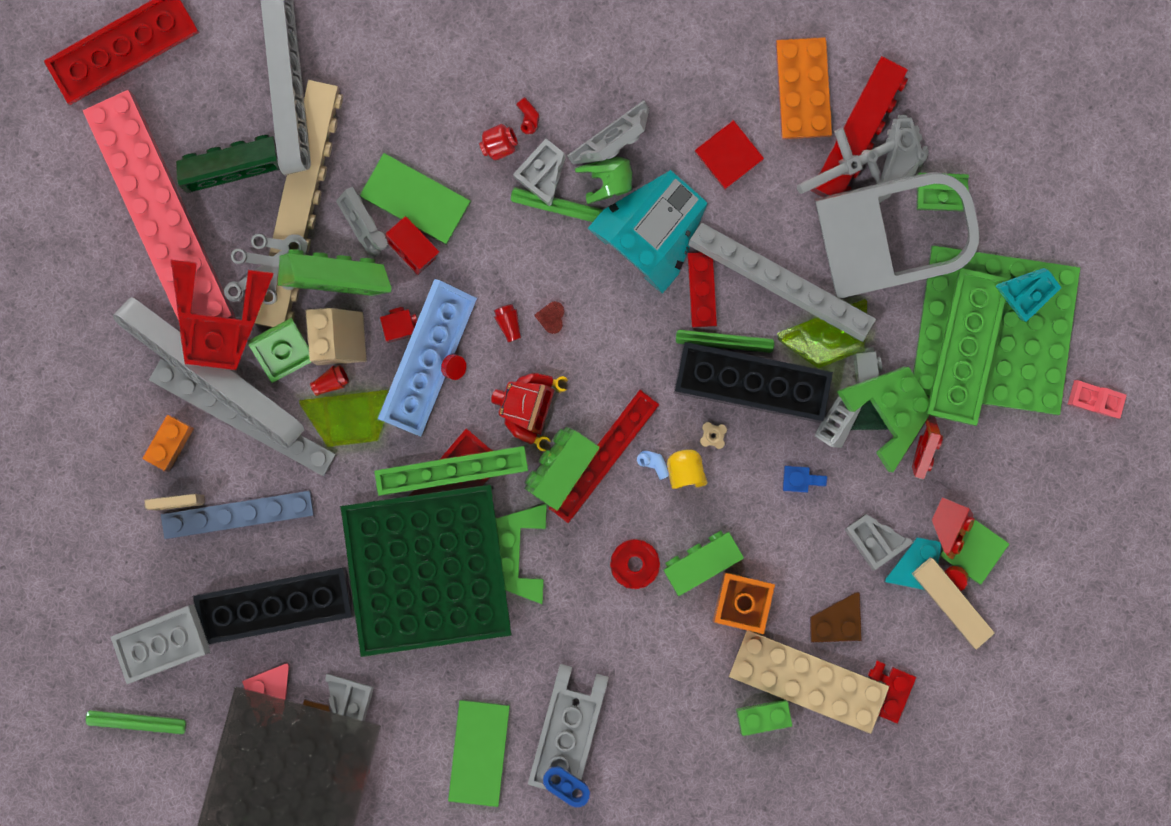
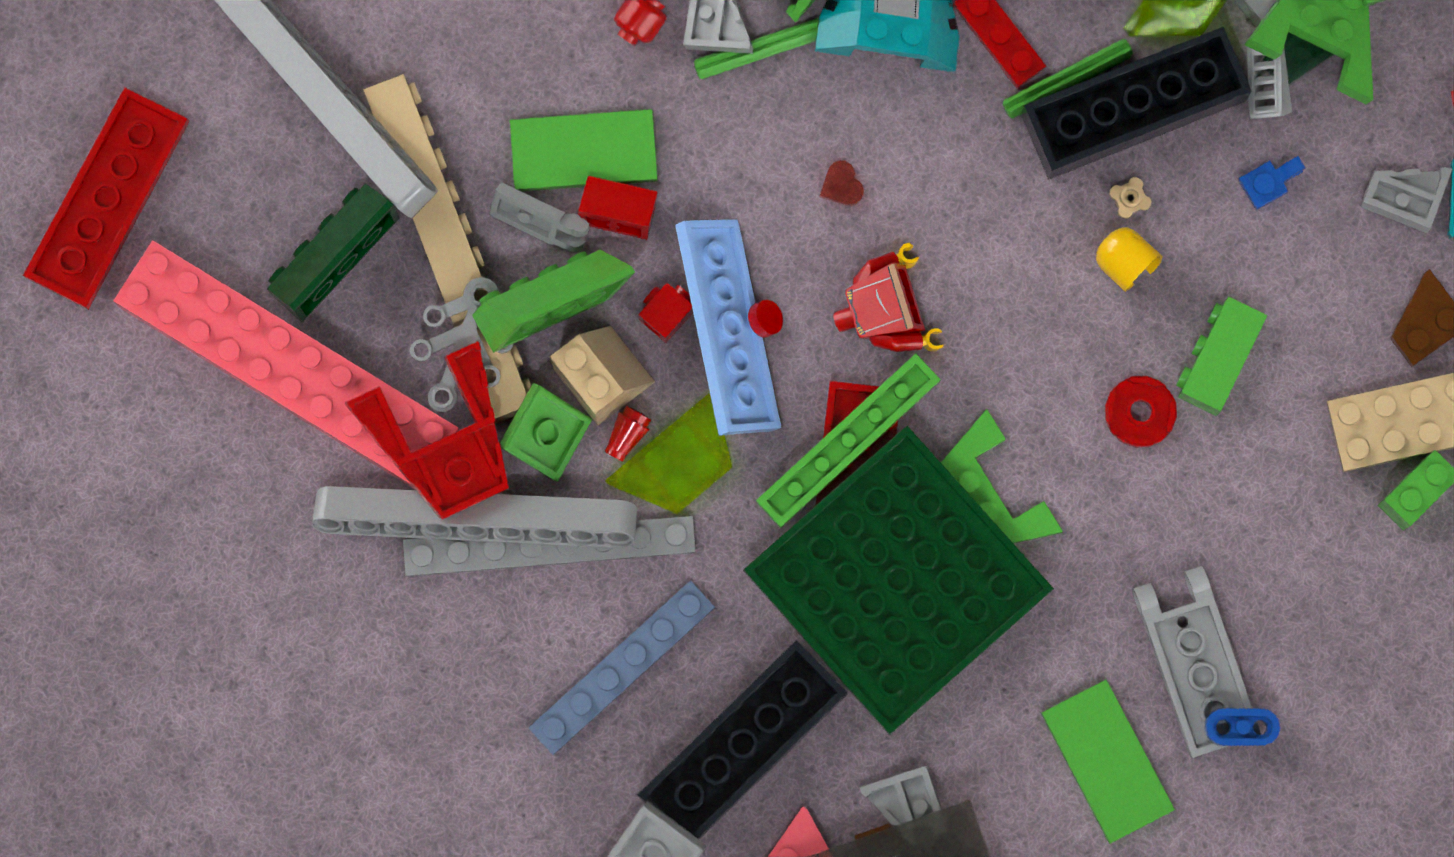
camera: 30 degrees left, 5 degrees down
(168, 443) = (481, 634): orange brick -> none
(175, 502) = (539, 697): tan tile -> none
(508, 322) = (794, 222): red cone -> none
(561, 467) = (977, 350): bright green piece -> none
(610, 449) = (1016, 308): red tile -> none
(655, 461) = (1080, 274): light blue arm -> none
(743, 603) = (1302, 369): orange brick -> none
(926, 448) = (1393, 47): red wing -> none

